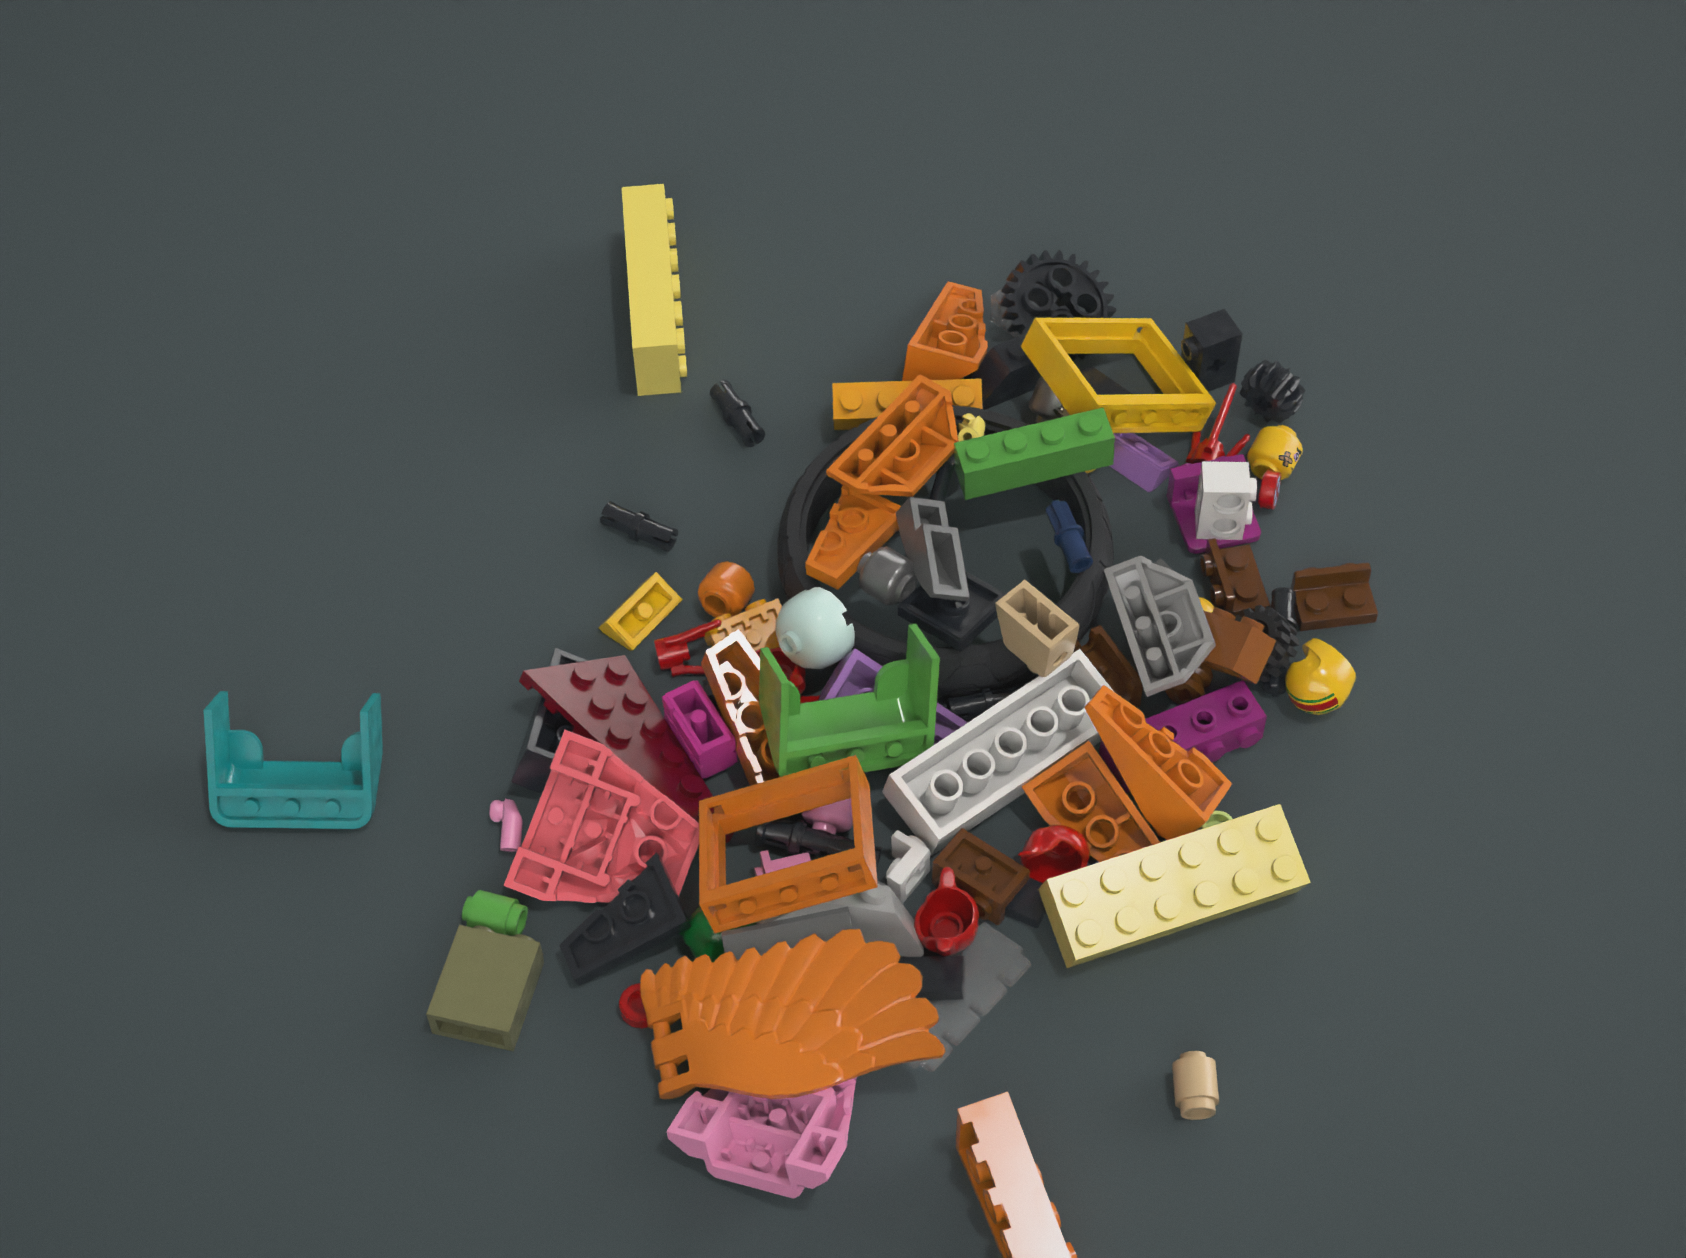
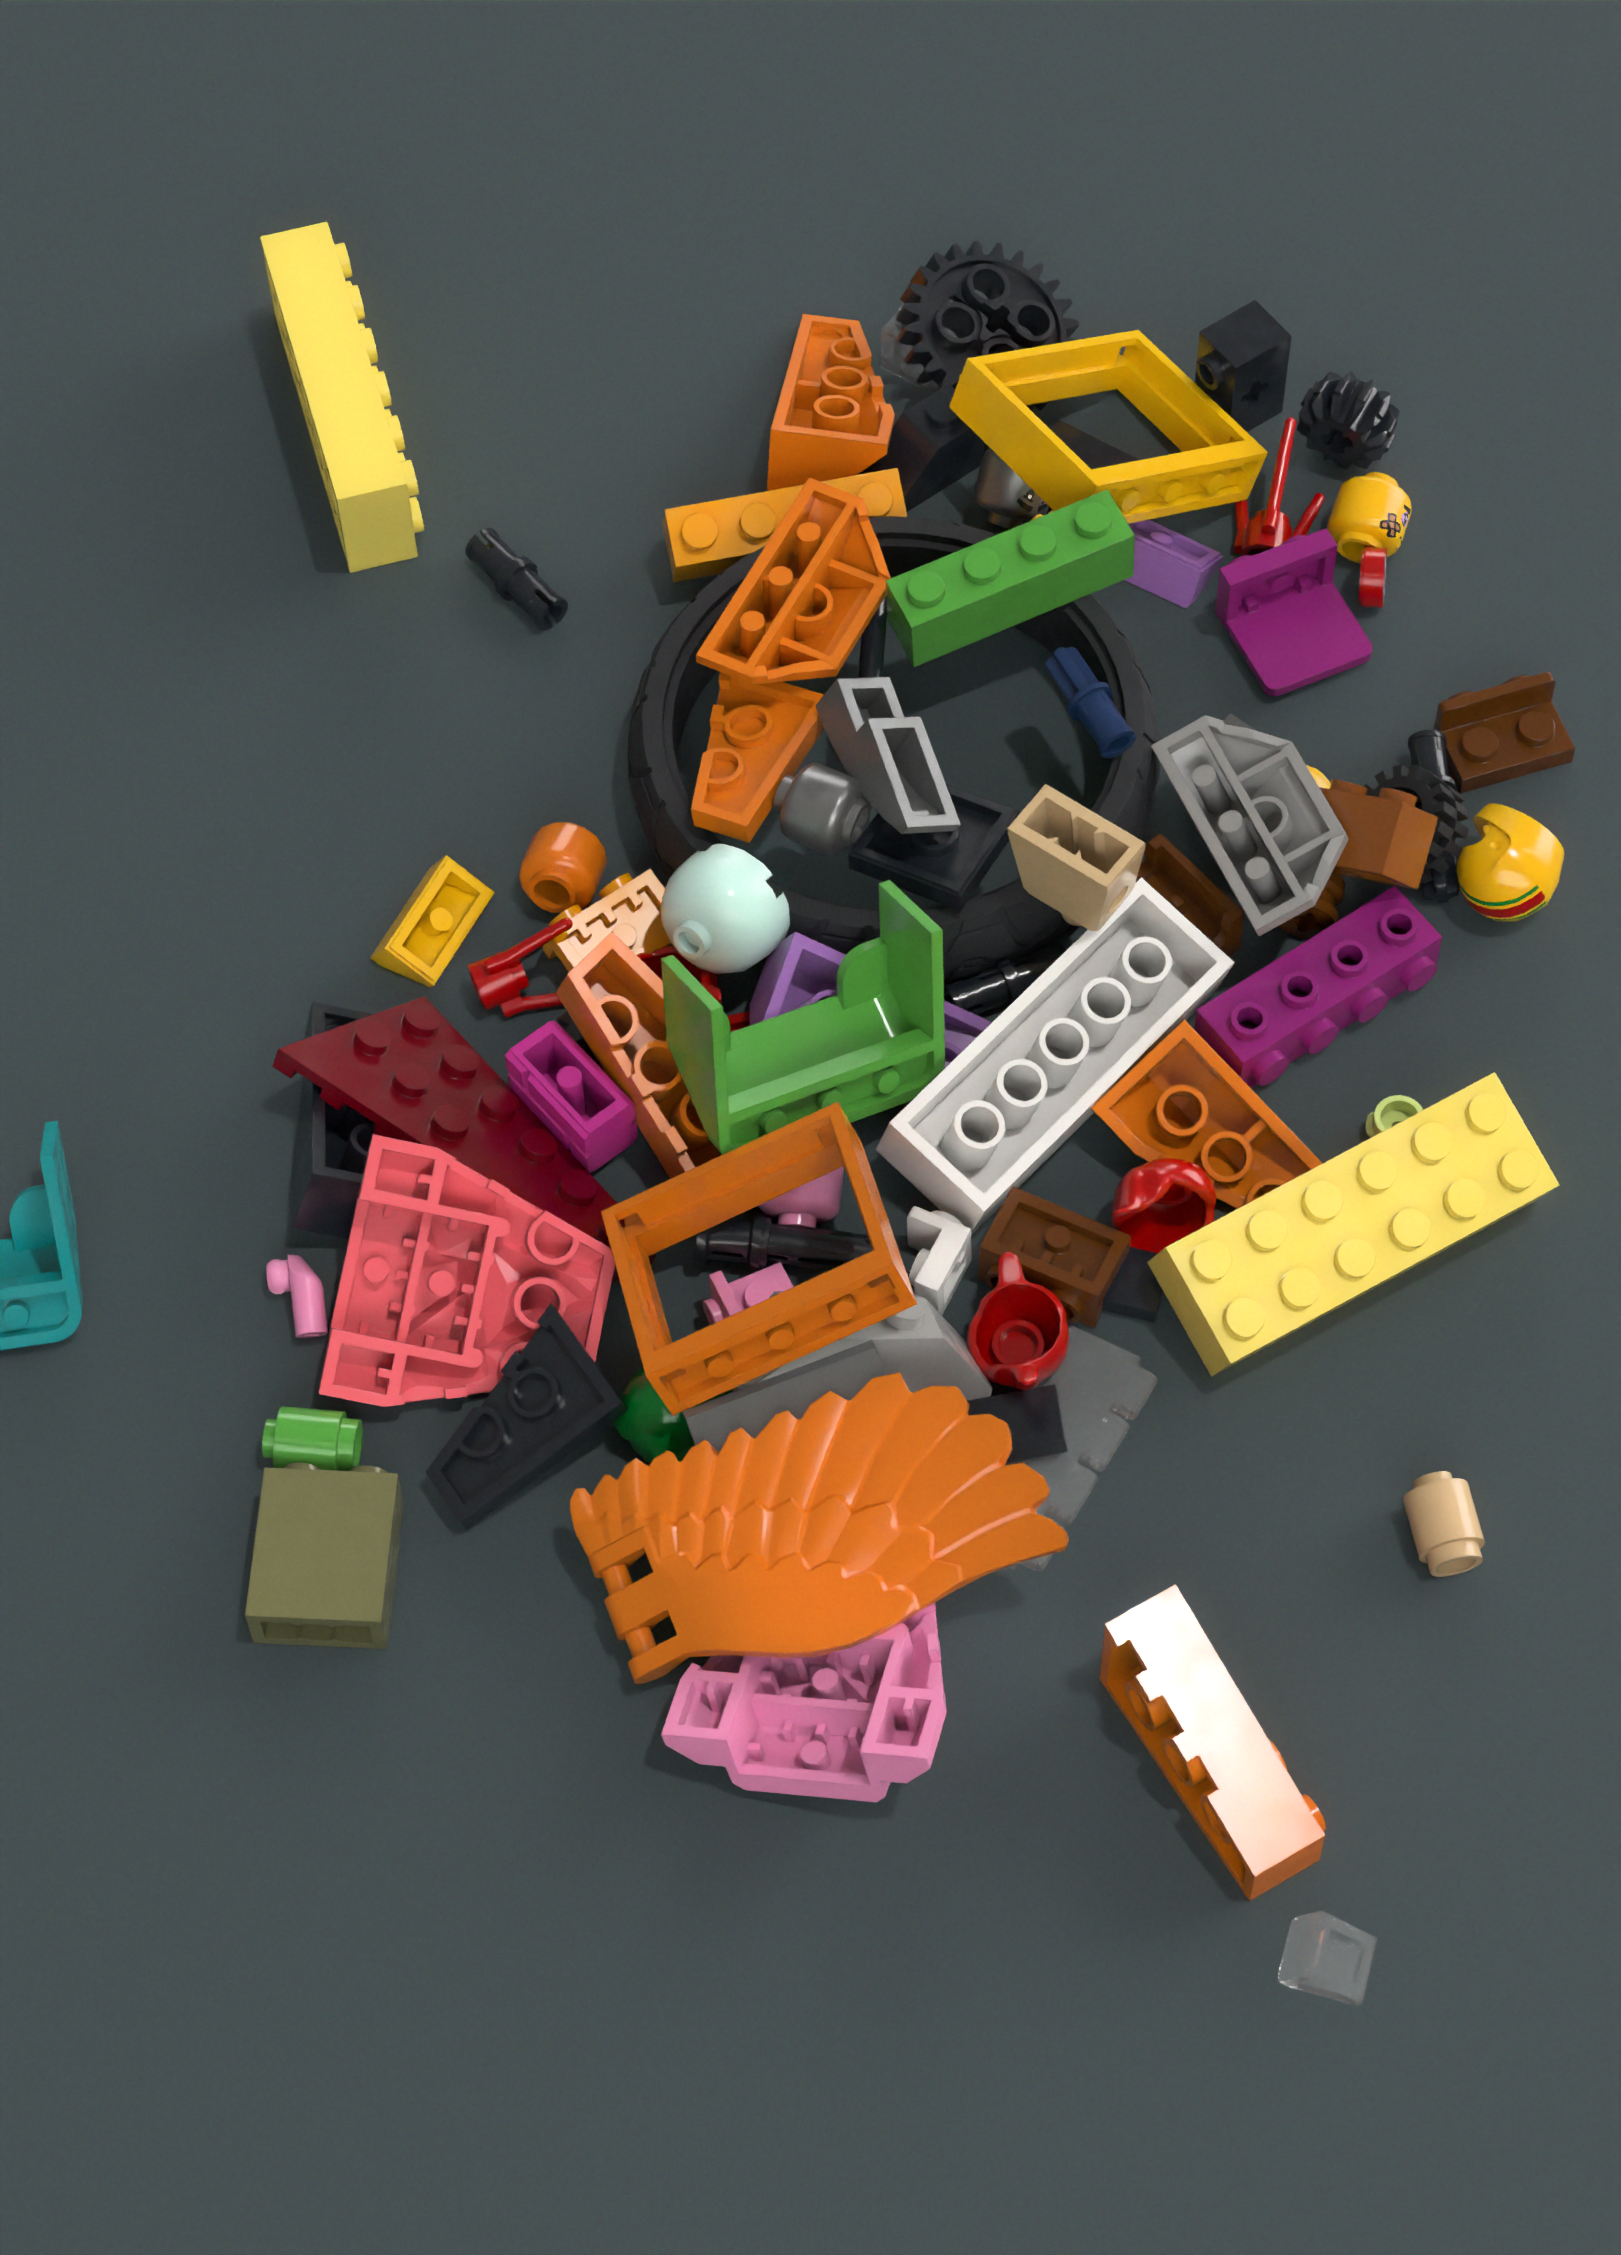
camera: 10 degrees left, 5 degrees up
(632, 1007) = (561, 1549): red tile -> none
(639, 526) = (400, 785): black pin -> none
(971, 427) = (902, 551): light yellow arm -> none
(1170, 785) = (1316, 1065): orange wedge -> none
(1223, 500) = (1312, 607): white brick -> none
(1233, 578) = (1345, 727): reddish brown bracket -> none

